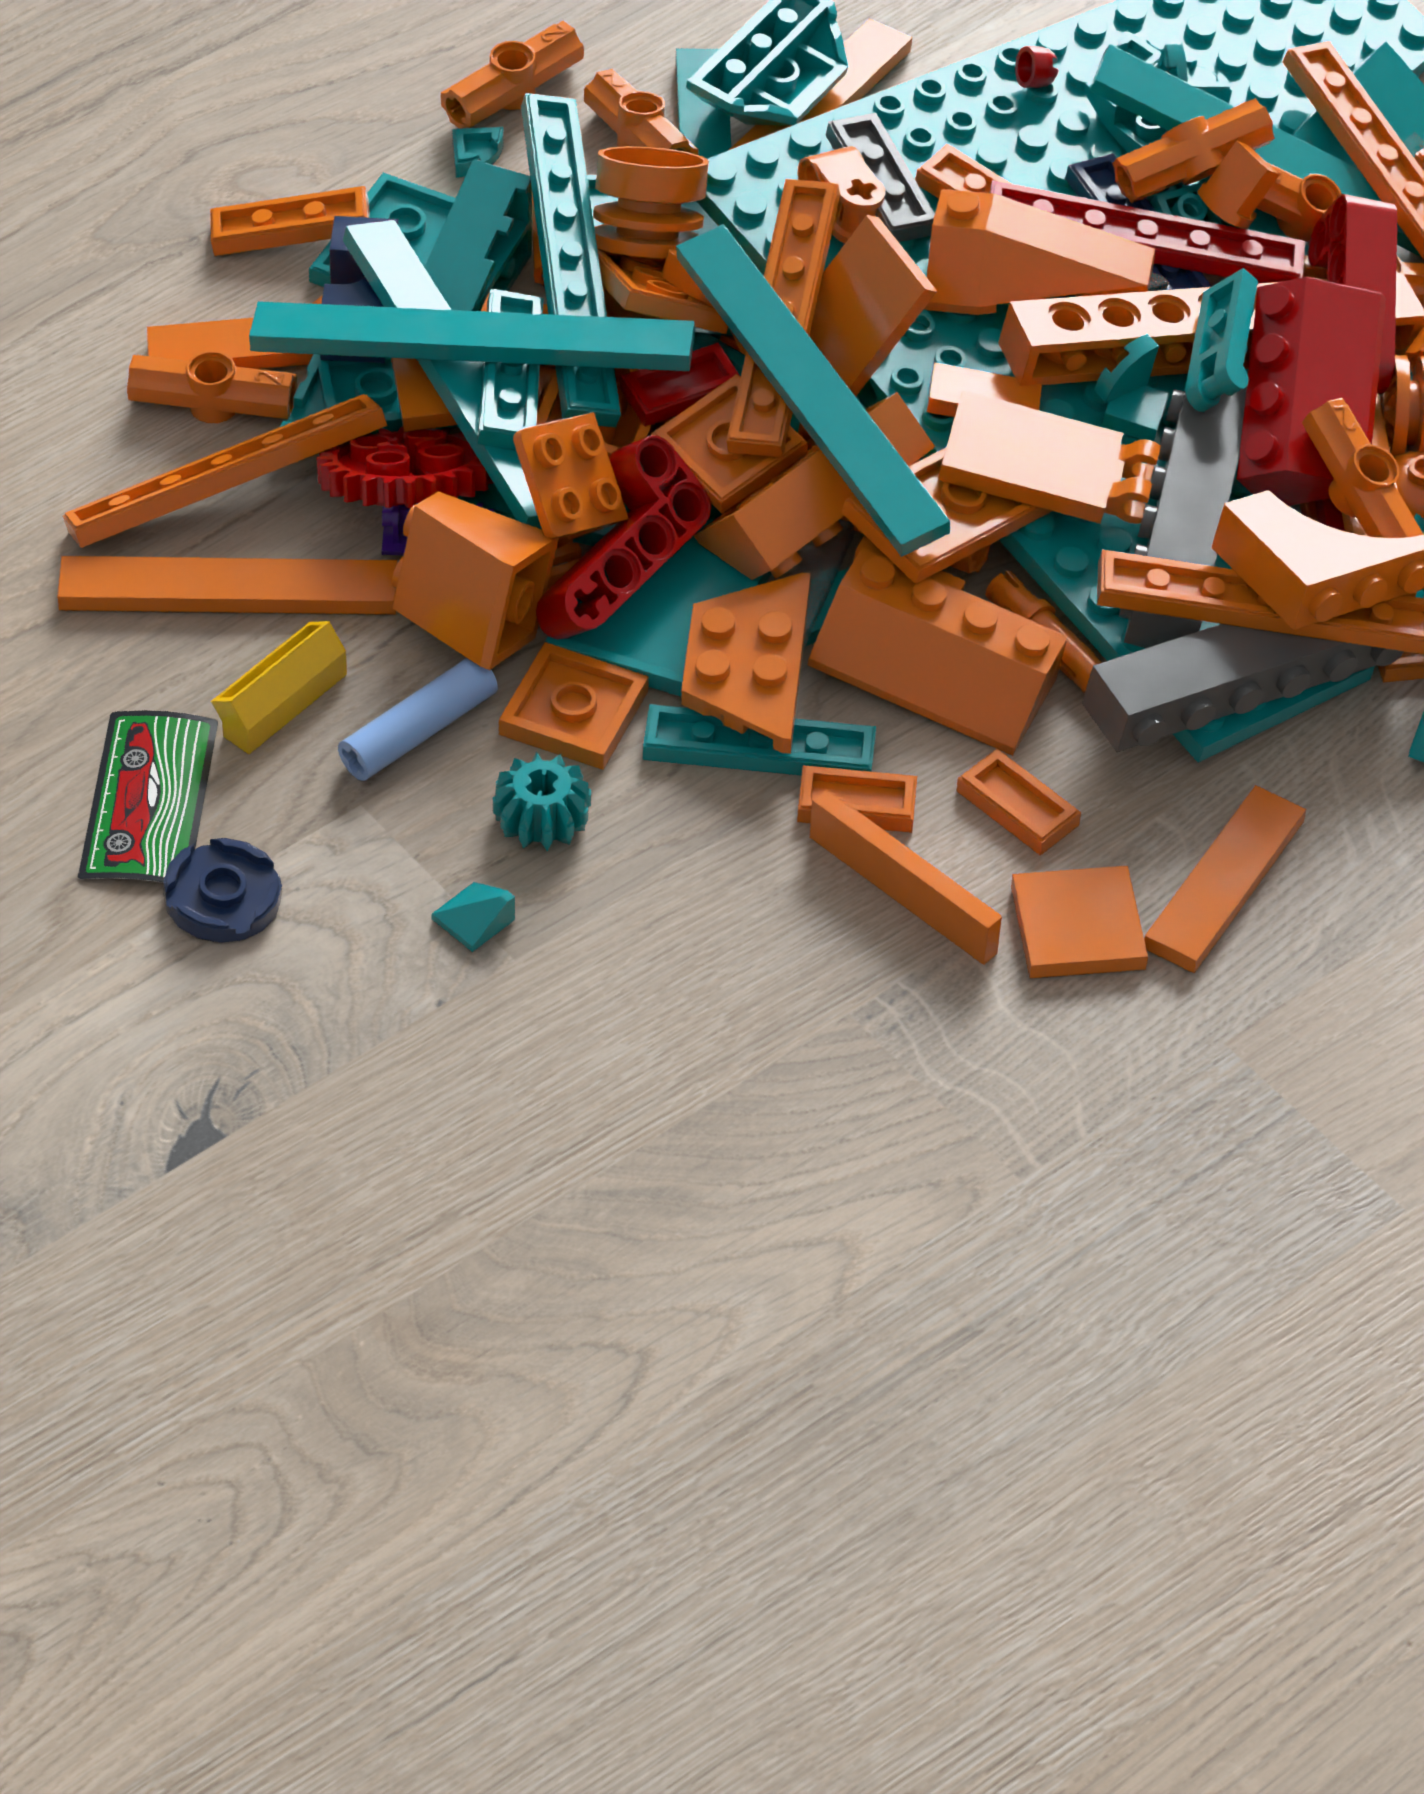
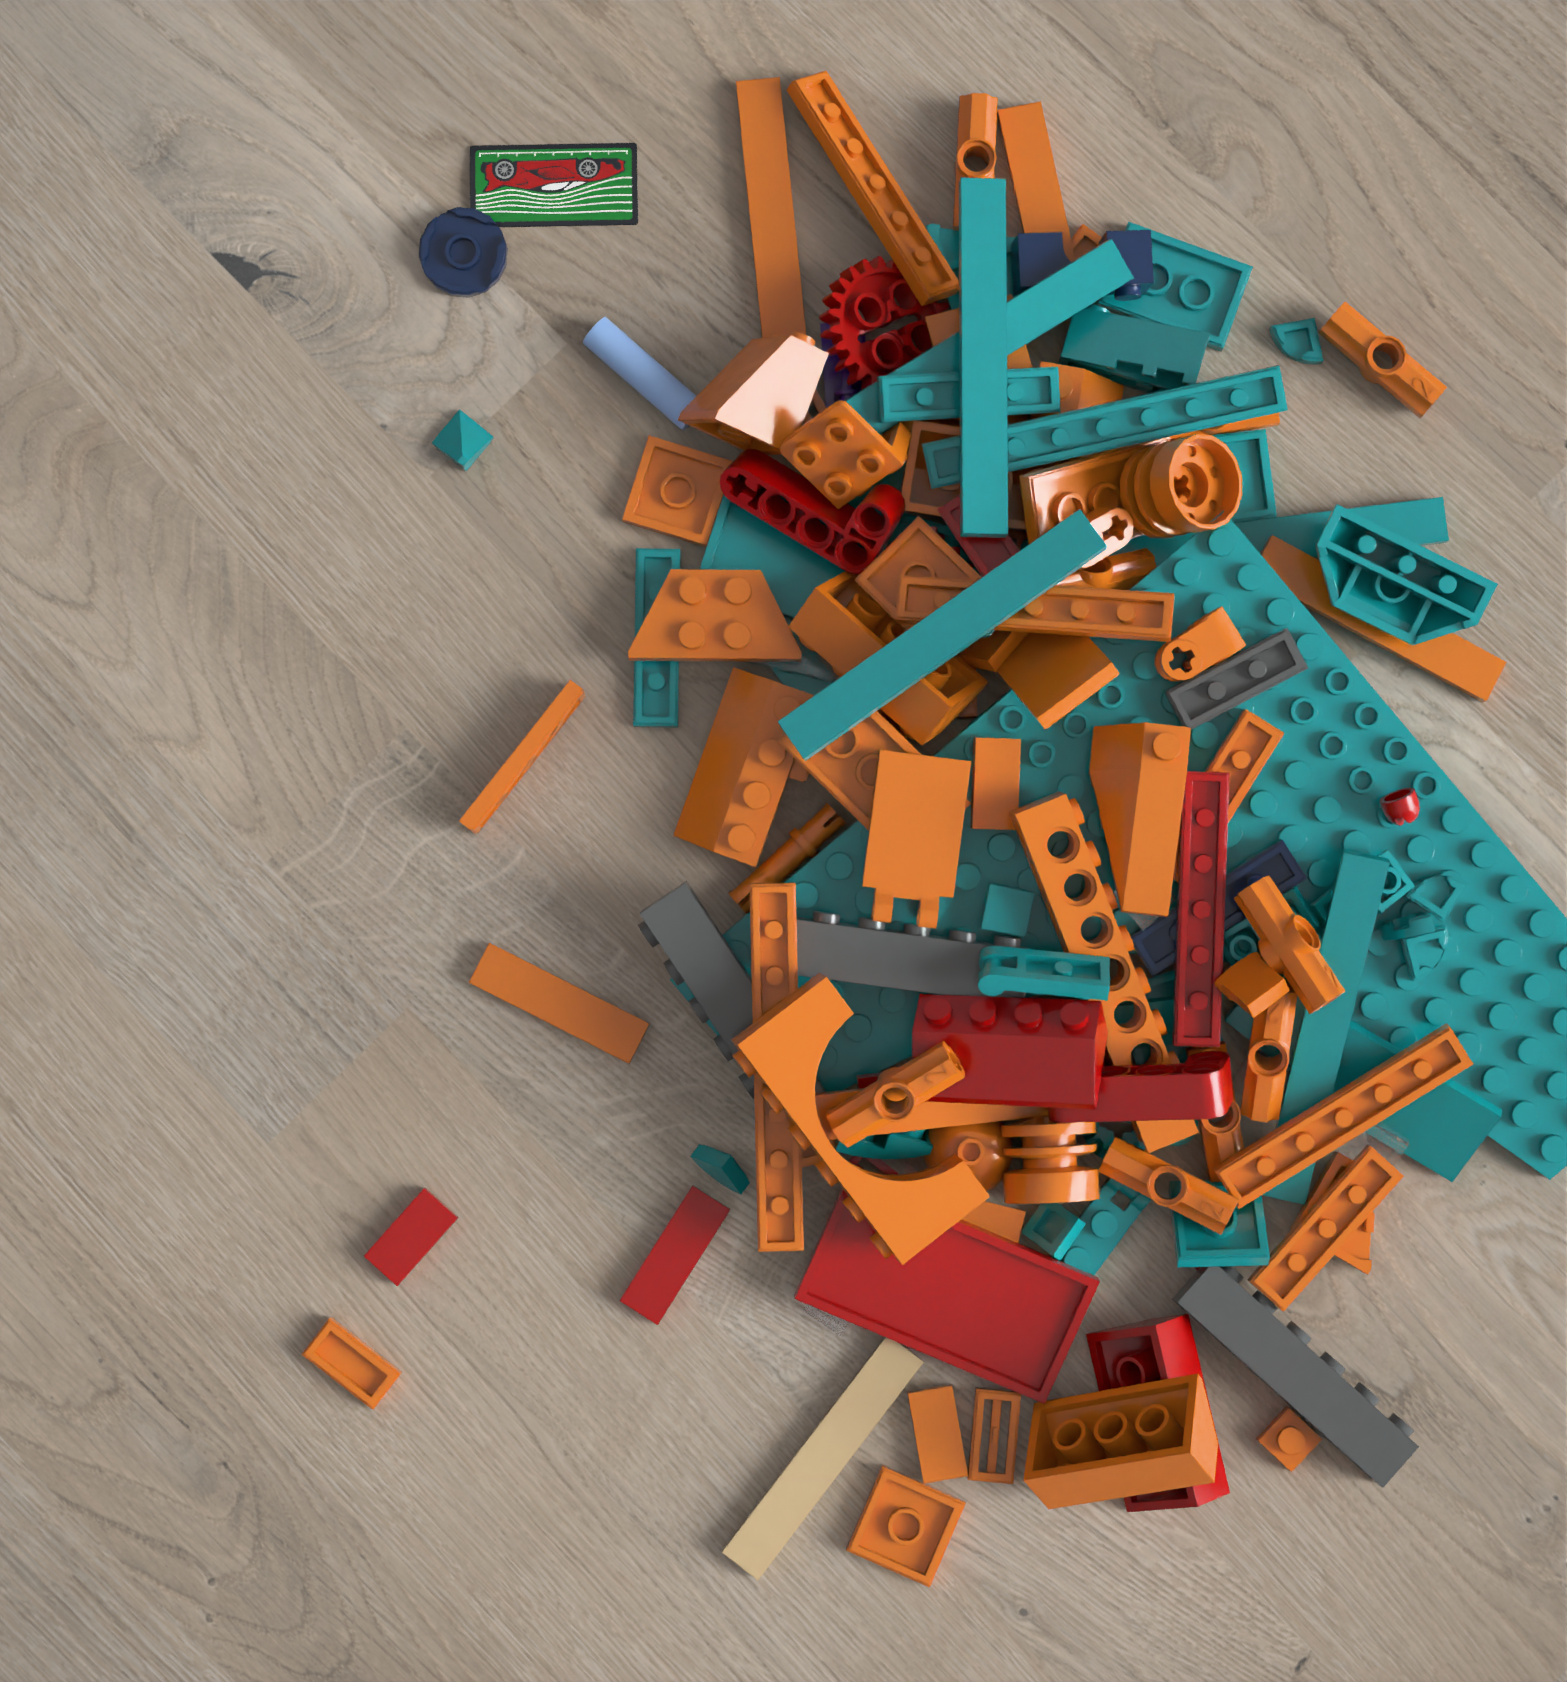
camera: 85 degrees right, 35 degrees up
(281, 685) = (661, 263): yellow piece -> none
(283, 220) = (1180, 198): orange tile -> none
(542, 801) = (568, 462): teal gear -> none
(633, 114) = (1309, 488): orange piece -> none
(879, 796) = (608, 717): orange tile -> none
(1018, 801) = (620, 841): orange tile -> none
(1079, 921) = (504, 892): orange tile -> none
(1131, 371) = (1025, 897): teal tile -> none

